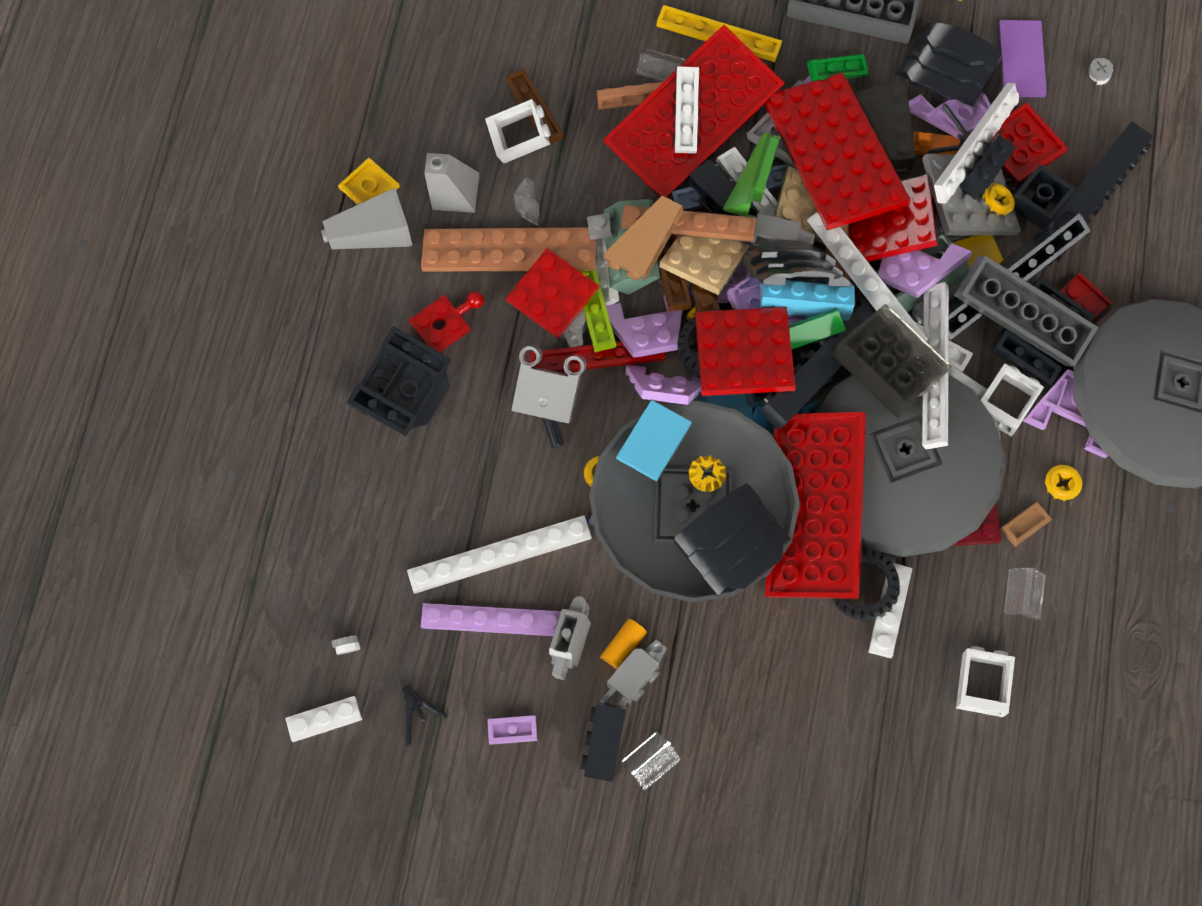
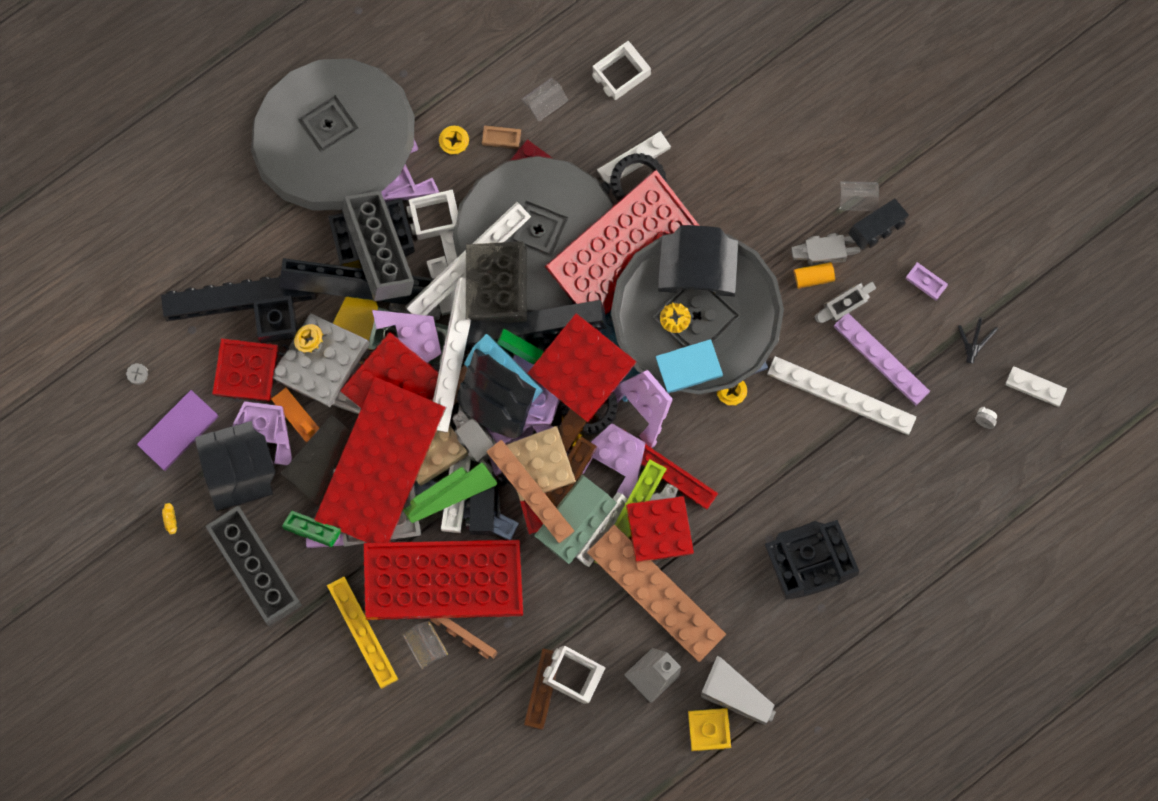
camera: 135 degrees left, 5 degrees up
(444, 311) = (736, 591): red plate -> none
(525, 201) = (615, 618): clear panel -> none
(547, 393) = (722, 464): light grey piece -> none
(599, 226) = (587, 546): light grey plate -> none
(644, 241) = (576, 498): medium nougat slope -> none
(686, 109) = (450, 579): white plate -> none
(963, 138) = (283, 398): black plant -> none
(976, 143) = (290, 382): white plate -> none
(987, 166) = (295, 363): black brick -> none
(1086, 295) = (317, 238): red plate -> none

